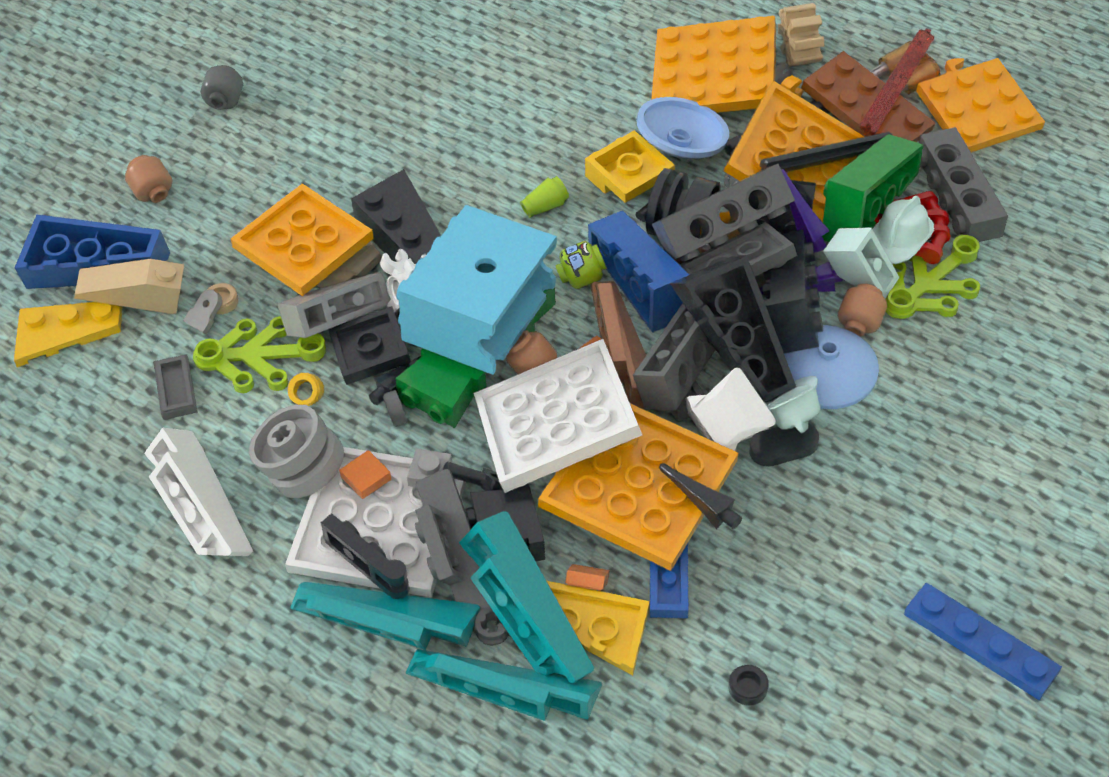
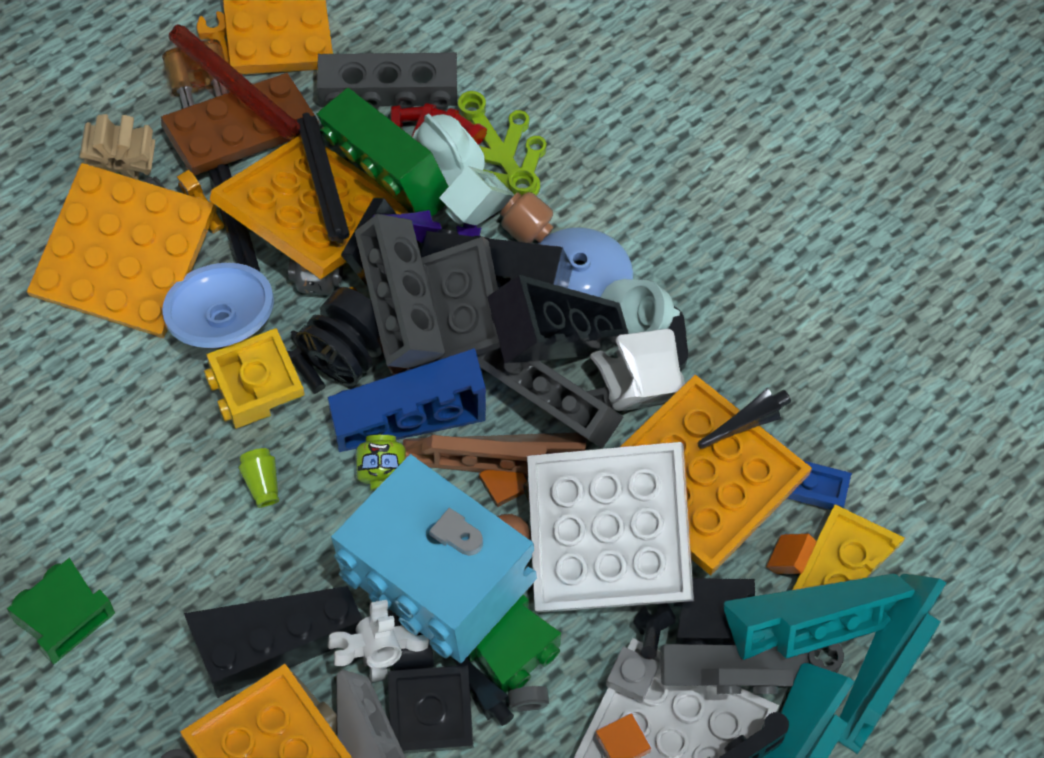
camera: 80 degrees left, 10 degrees up
(397, 114) = (60, 610): none -> green hips
(486, 274) = (451, 530): none -> light grey piece
(748, 685) = (931, 448): black tile -> none
(983, 641) = (920, 249): blue plate -> none

